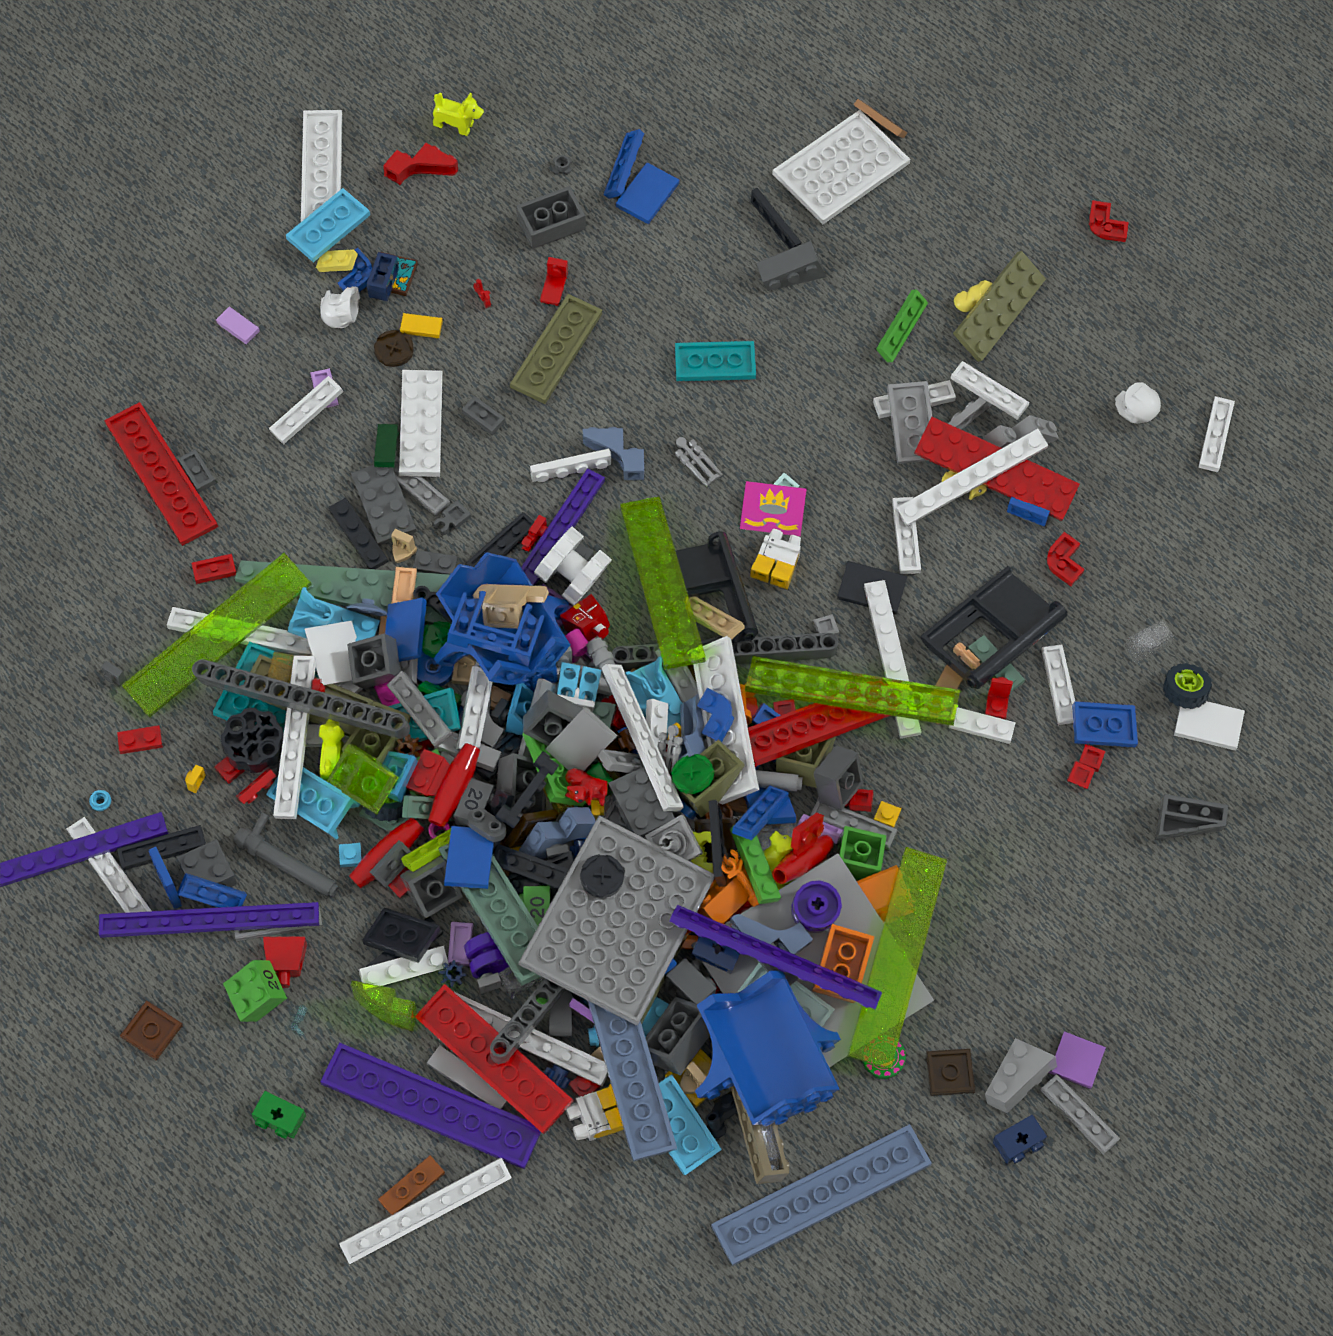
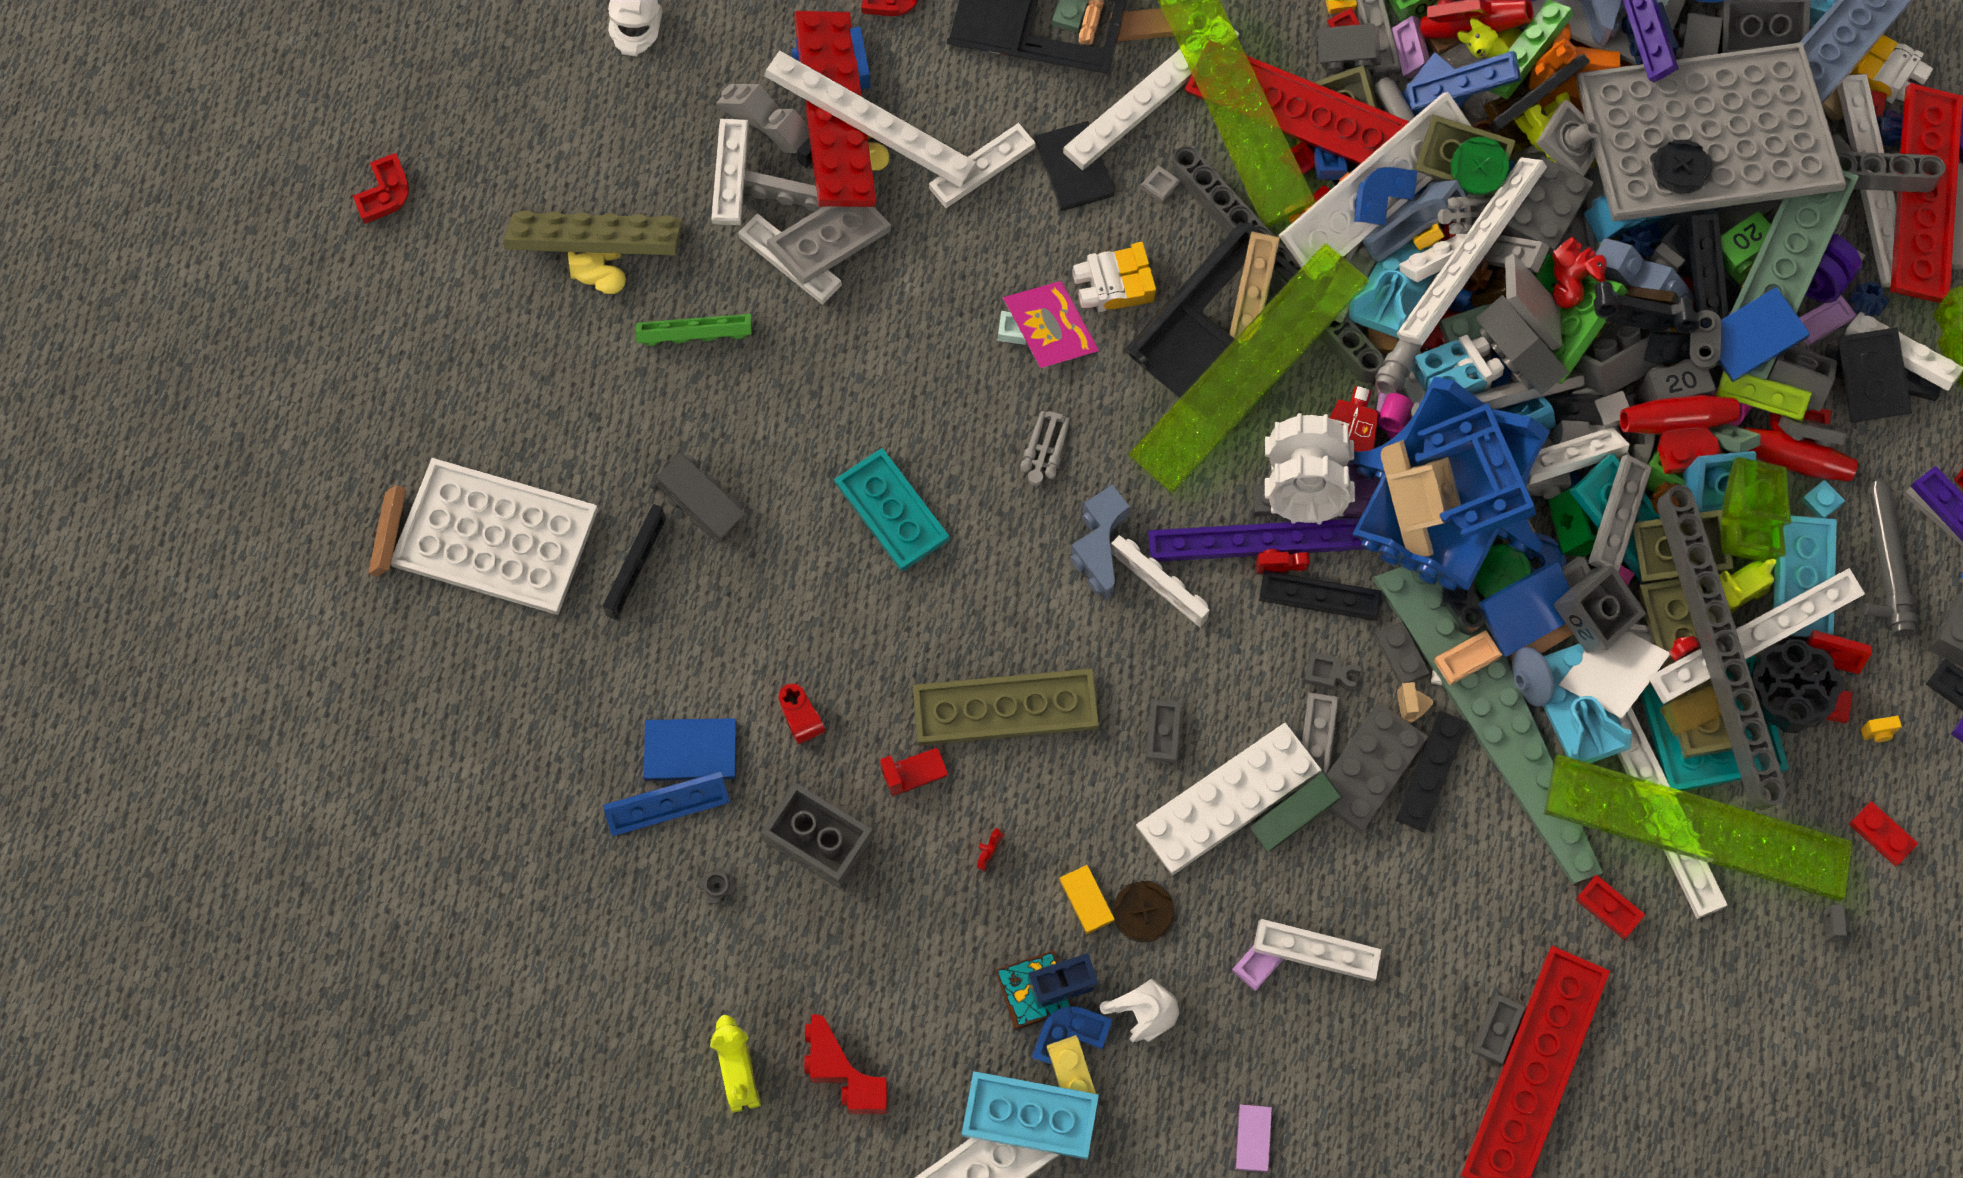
camera: 120 degrees left, 5 degrees up
(626, 249) = (801, 717): none -> red piece

